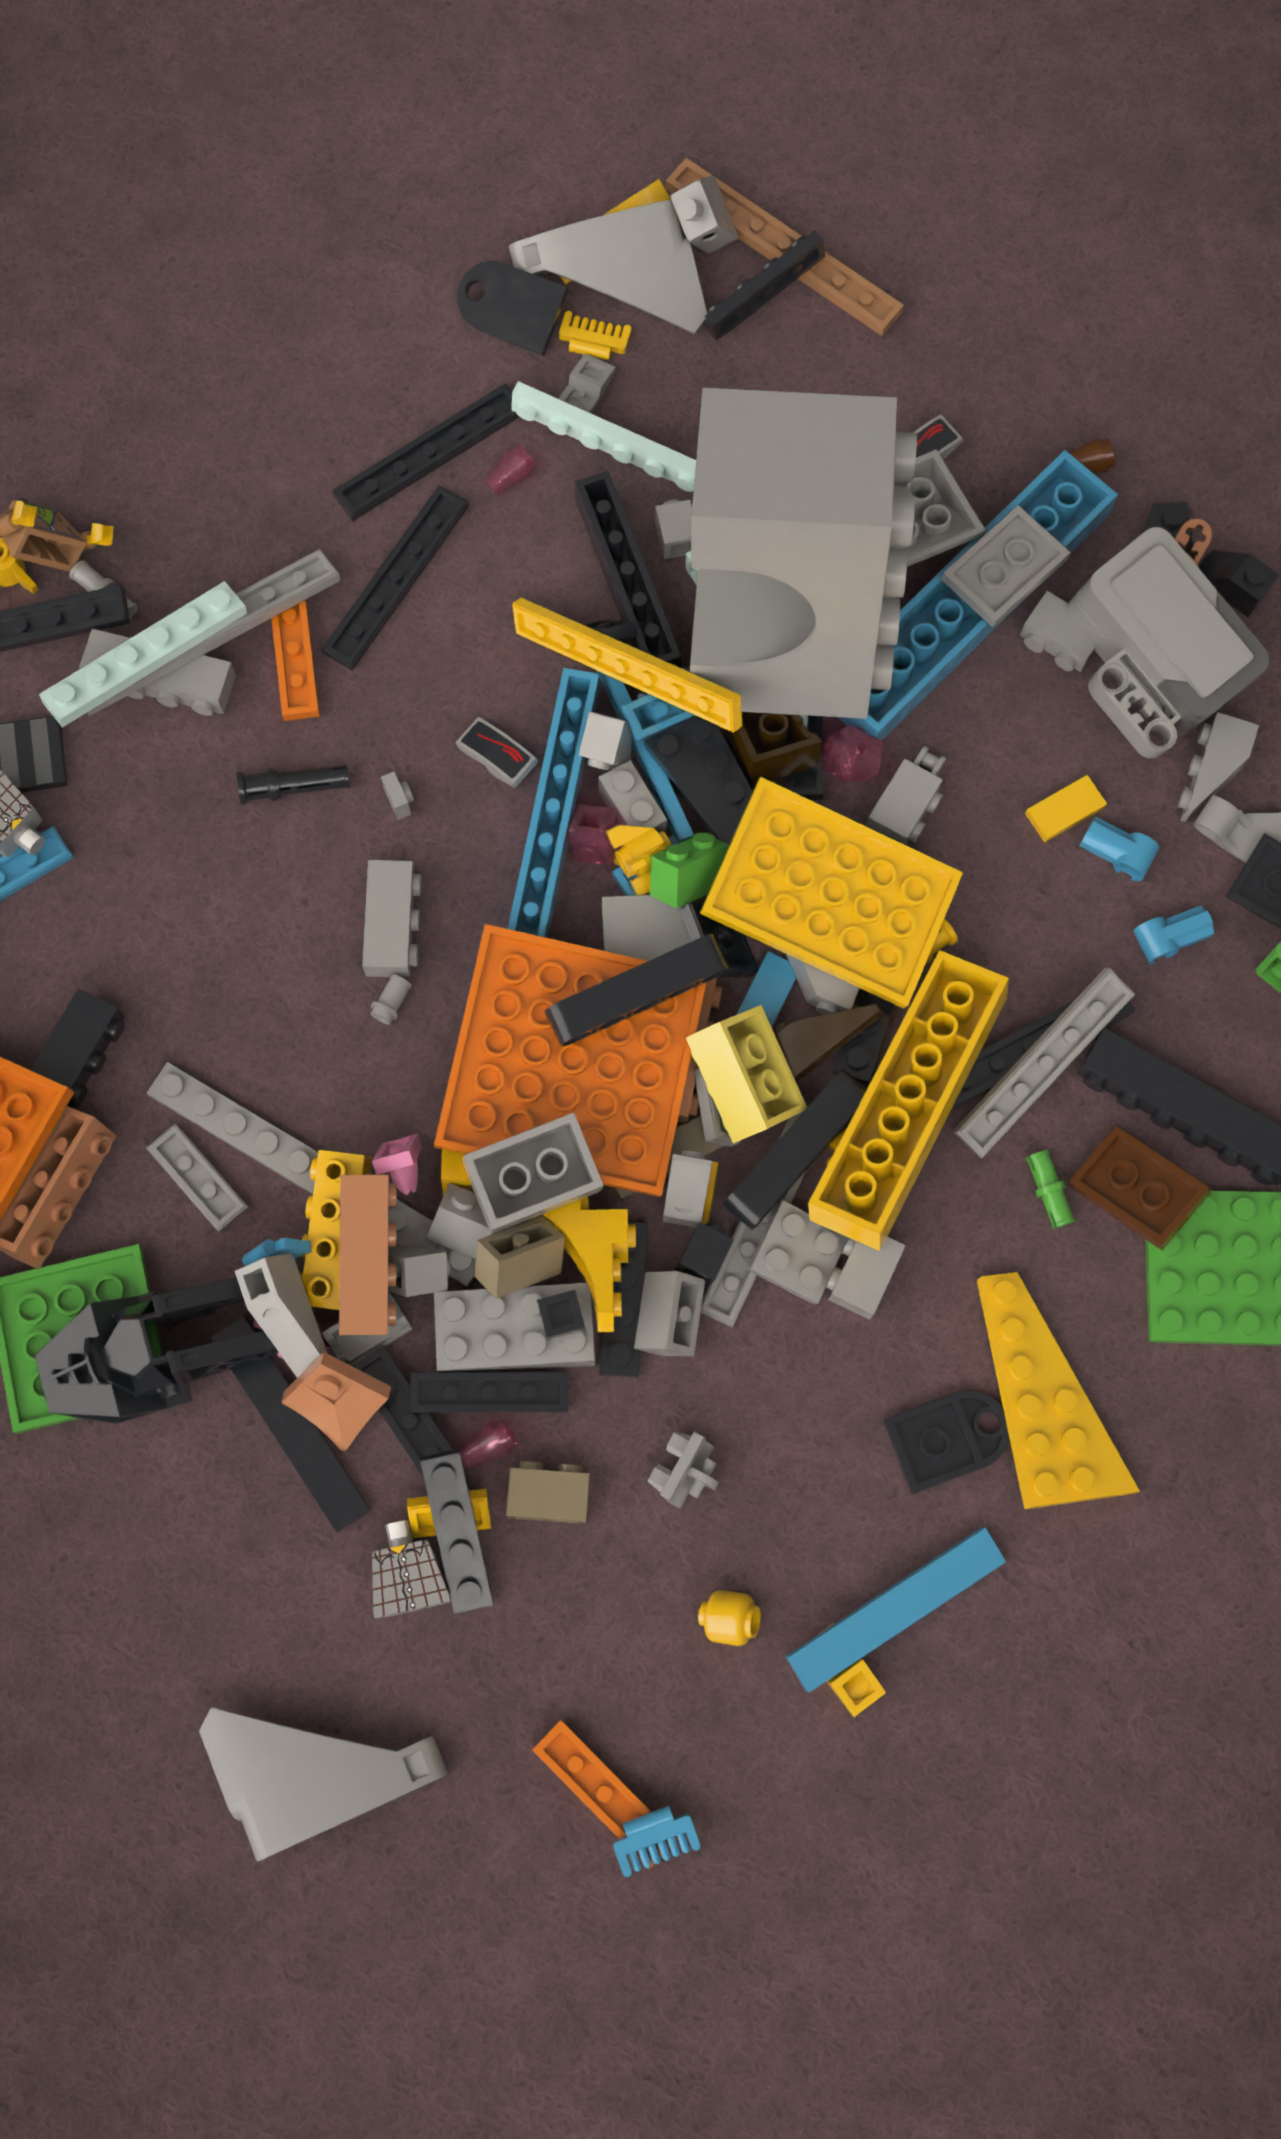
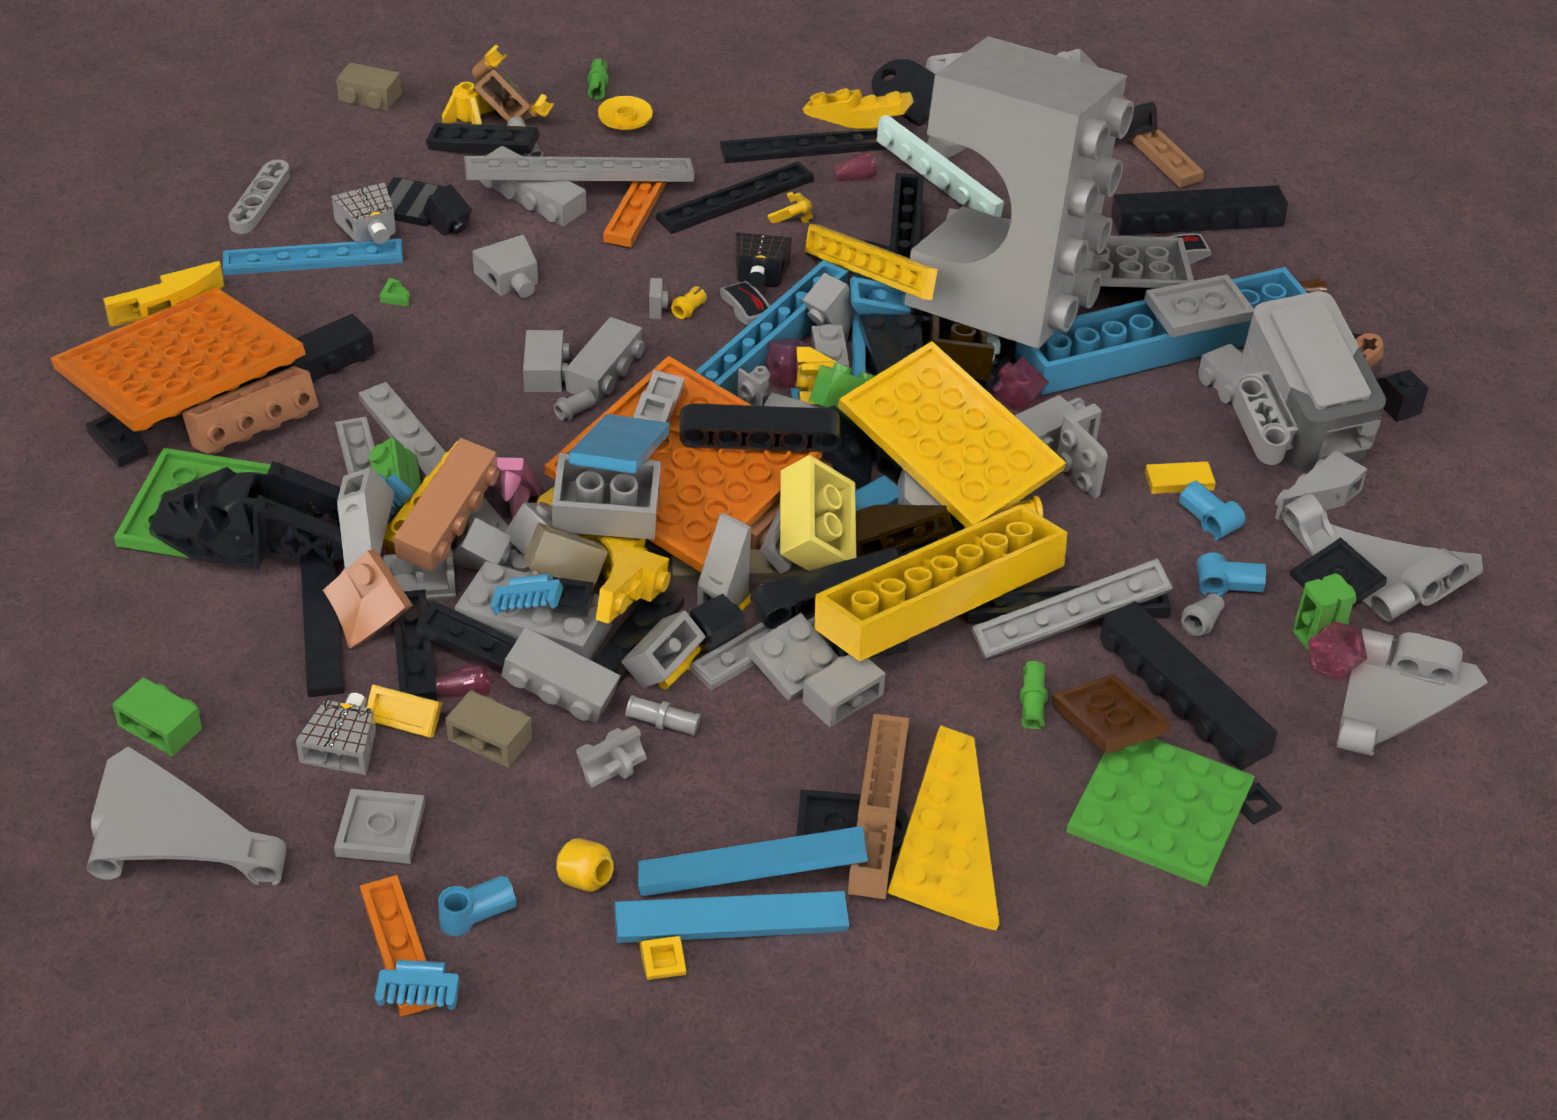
camera: 25 degrees right, 30 degrees down
(87, 763) = (447, 210): none -> black brick
(95, 914) = (395, 293): none -> bright green tile
(132, 443) = (597, 79): none -> bright green pin
(143, 654) = (526, 157): light aqua plate -> none
(194, 480) = (625, 112): none -> yellow dish
(205, 820) = (507, 266): none -> light grey torso
(209, 1643) = (157, 716): none -> bright green brick
(264, 1204) = (393, 459): none -> bright green brick
(275, 784) = (571, 266): black pin -> none
(325, 951) = (544, 360): none -> light grey brick
(431, 788) = (683, 306): none -> yellow pin
(456, 1531) = (400, 715): plate -> none
(467, 370) = (855, 111): none -> yellow slope
(479, 574) = (802, 206): none -> yellow piece
(480, 679) = (762, 258): none -> black torso
(507, 1664) = (380, 826): none -> light grey plate
(511, 1001) = (660, 397): none -> light grey slope
(511, 1324) = (524, 589): none -> dark azure piece
(516, 1105) = (619, 443): none -> dark azure tile
(585, 914) = (753, 385): none -> light grey hinge
(588, 1405) = (560, 676): none -> light grey brick
(654, 1709) = (463, 907): none -> dark azure piece
(706, 1391) = (662, 715): none -> light grey pin
(888, 1541) = (752, 861): none -> dark azure tile
(943, 360) = (1199, 210): none -> black brick
(959, 839) = (1081, 451): none -> light grey bracket
(970, 1406) = (879, 804): none -> medium nougat slope
(1167, 1001) = (1201, 616): none -> light grey cone

